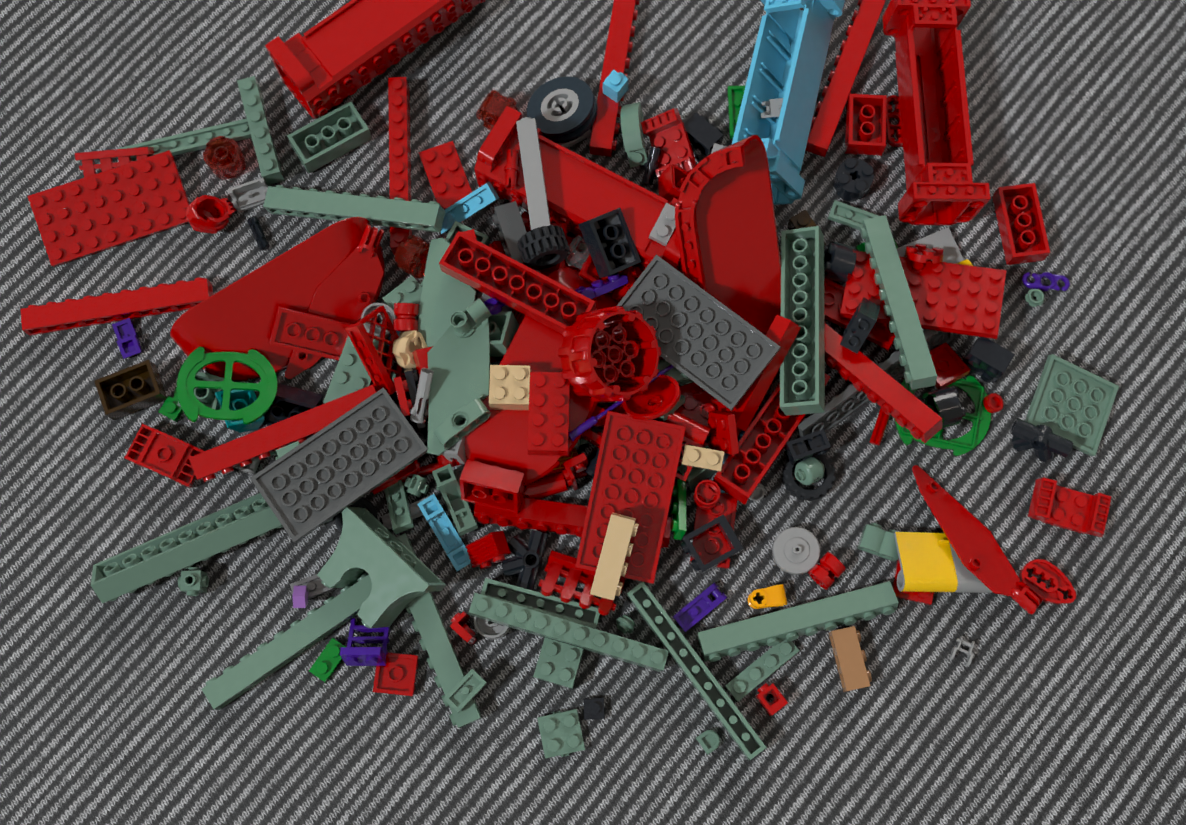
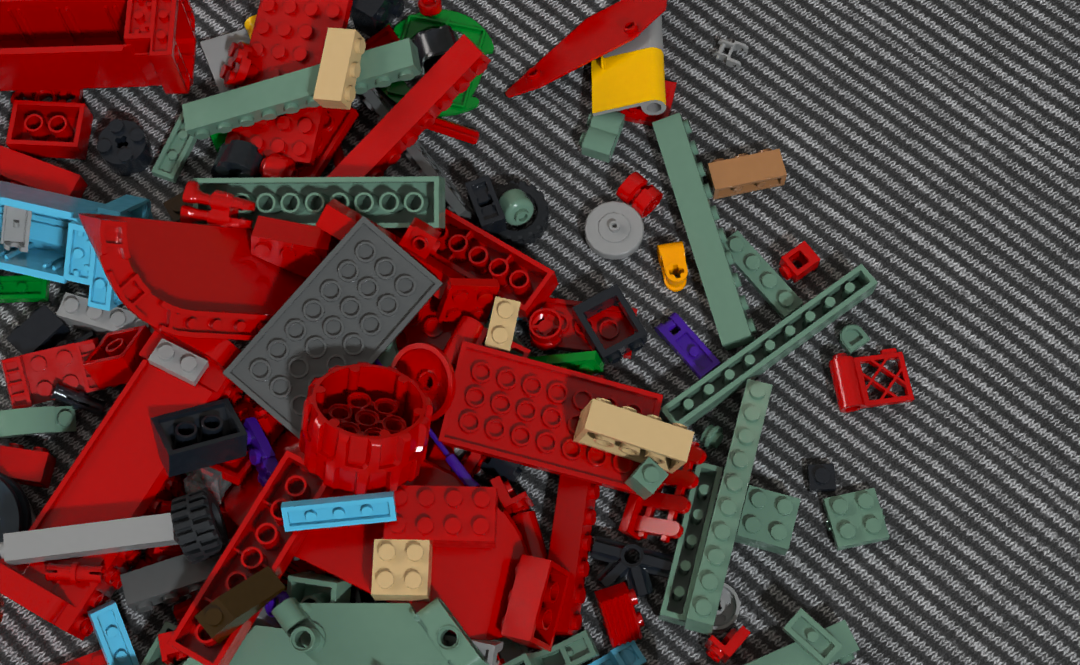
camera: 90 degrees left, 5 degrees down
(481, 275) = (239, 604): none -> dark brown slope
(546, 338) = (339, 511): none -> medium azure plate
(583, 567) = (646, 478): none -> sand green brick
(672, 735) = (850, 380): none -> red piece
(766, 299) = (290, 244): none -> red wedge
(769, 394) = (421, 231): none -> red brick
(794, 248) = (223, 207): none -> red piece
(835, 290) = (278, 166): none -> red head
(860, 325) = (327, 125): black window -> none
(908, 324) = (339, 68): none -> tan brick

